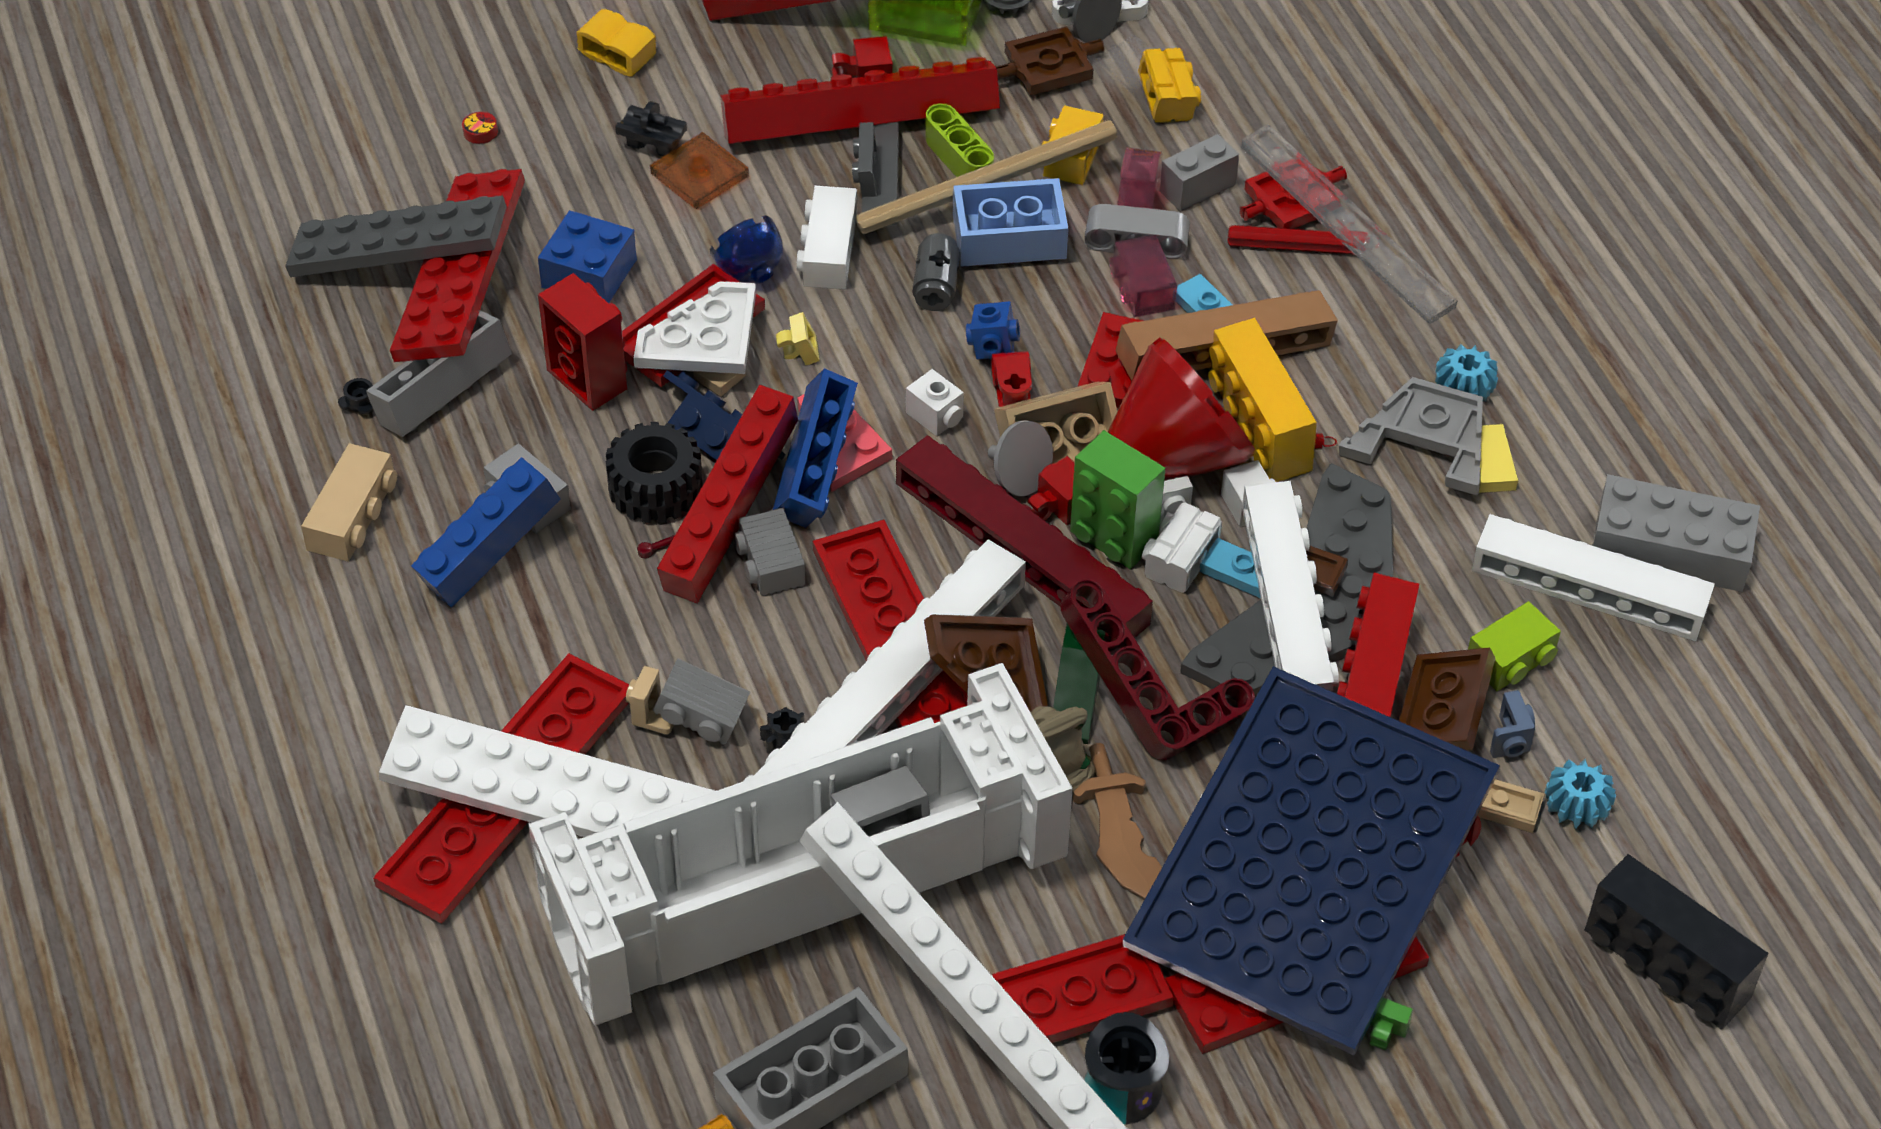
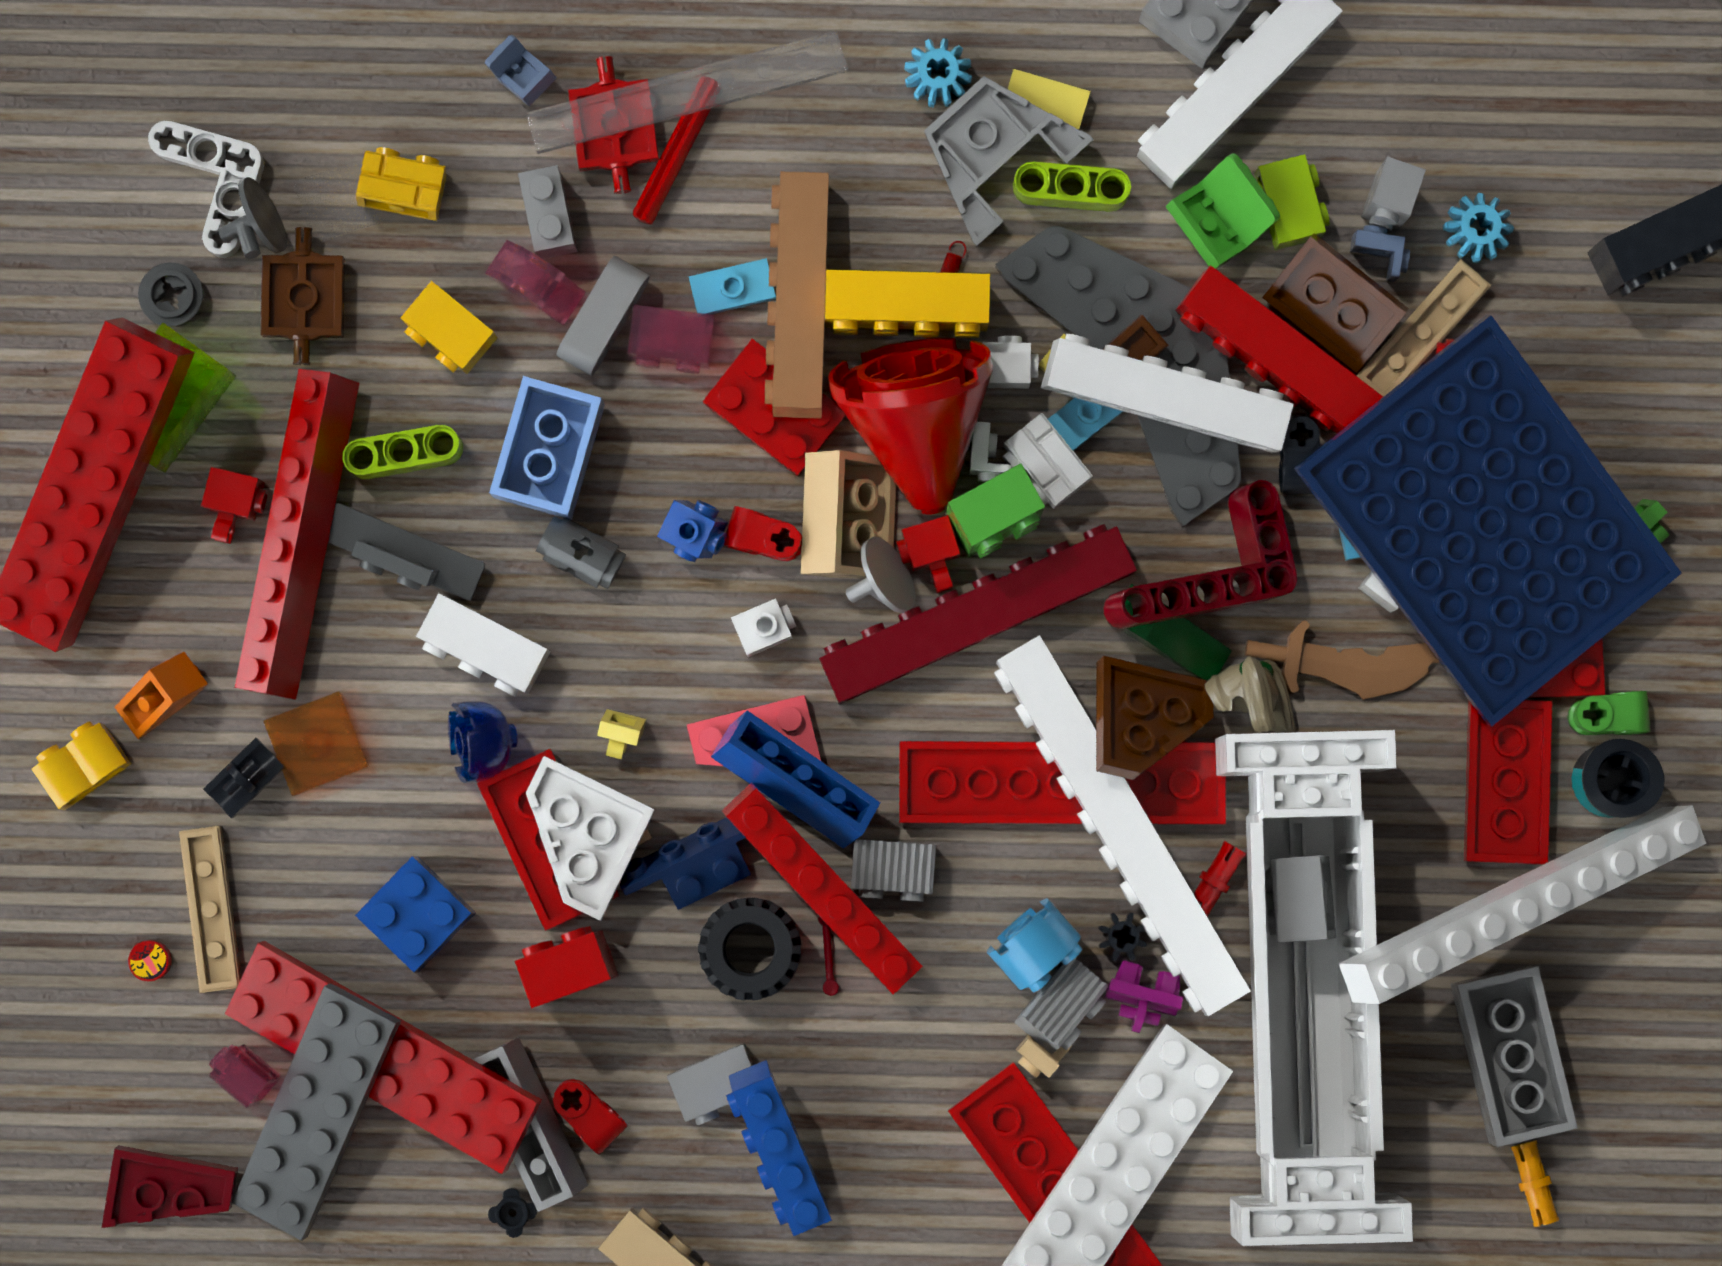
camera: 65 degrees left, 35 degrees up
(298, 180) = (162, 1185): none -> dark red wing
(408, 180) = (243, 1074): none -> clear pink brick
(463, 412) = (594, 1120): none -> red piece
(541, 146) = (210, 909): none -> tan tile
(696, 68) = (160, 694): none -> orange slope
(734, 760) = (1162, 998): none -> magenta hips
(749, 658) = (1035, 946): none -> dark azure brick
(993, 173) = (477, 446): tan axle -> none
(1192, 1059) = (1616, 714): none -> bright green piece
(1302, 123) = (519, 70): none -> sand blue bracket
(1429, 490) = (1090, 178): none -> lime beam
(1467, 595) = (1224, 212): none -> bright green bracket
(1567, 705) = (1393, 194): none -> light grey brick

